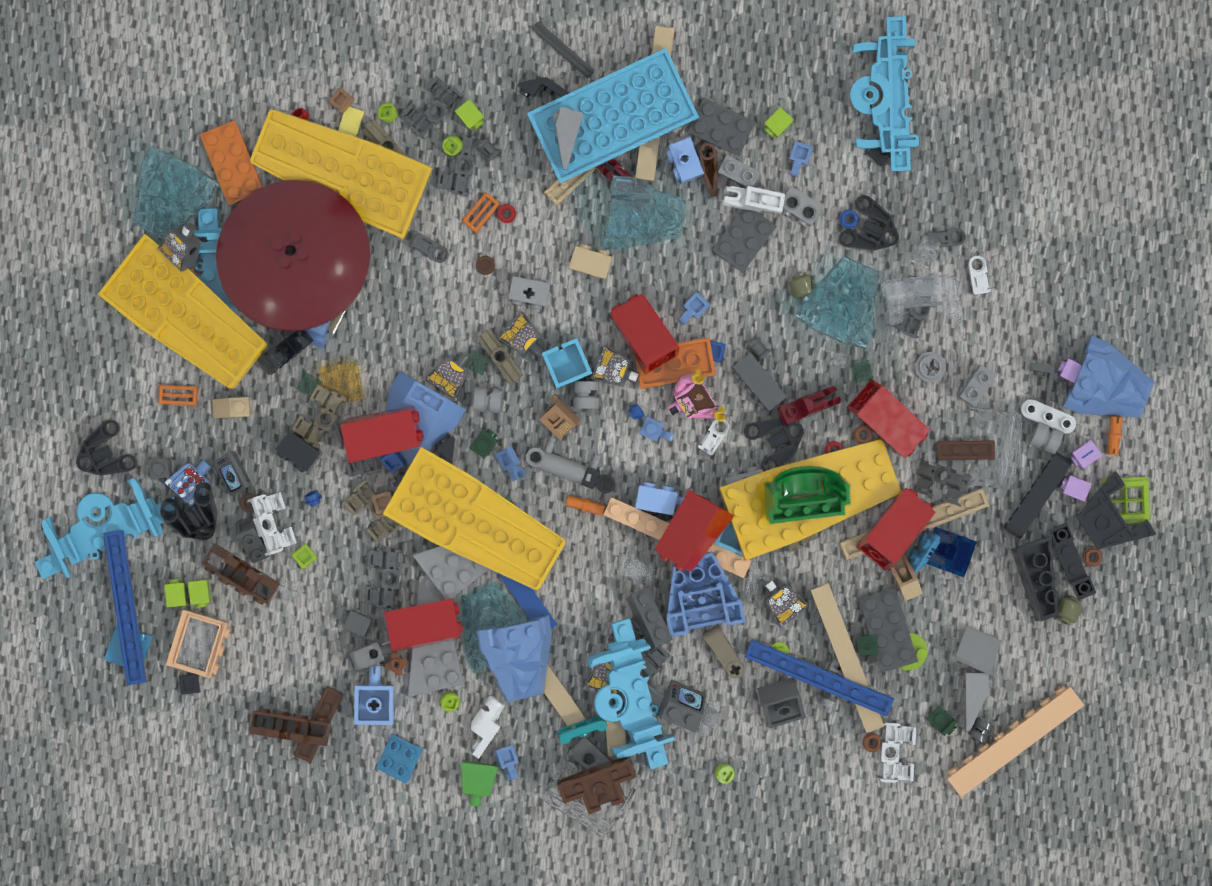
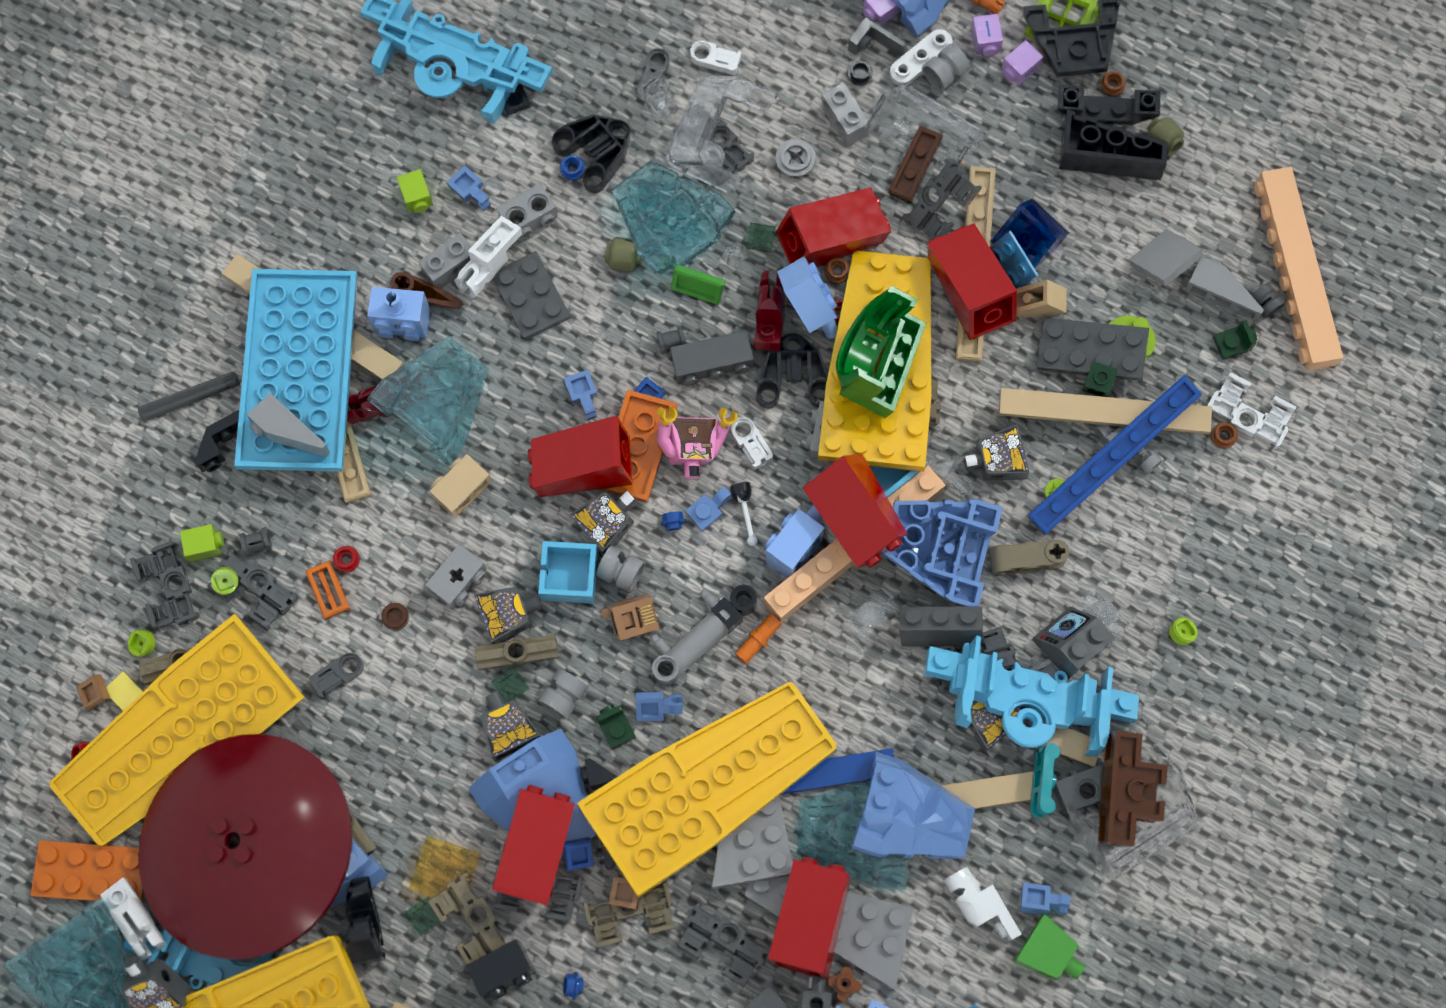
camera: 65 degrees left, 15 degrees down
(217, 208) = (132, 918): none -> white plate
(449, 701) = (927, 937): lime tile -> none
(675, 447) = (741, 493): none -> hinge
(721, 127) = (383, 255): dark grey plate -> none
(781, 702) = (1124, 517): dark grey slope -> none
(805, 347) = (697, 284): none -> bright green tile
(829, 427) = (810, 296): none -> light blue brick
(1015, 380) = (860, 73): none -> black plate
(1039, 494) = (1011, 108): black beam -> none

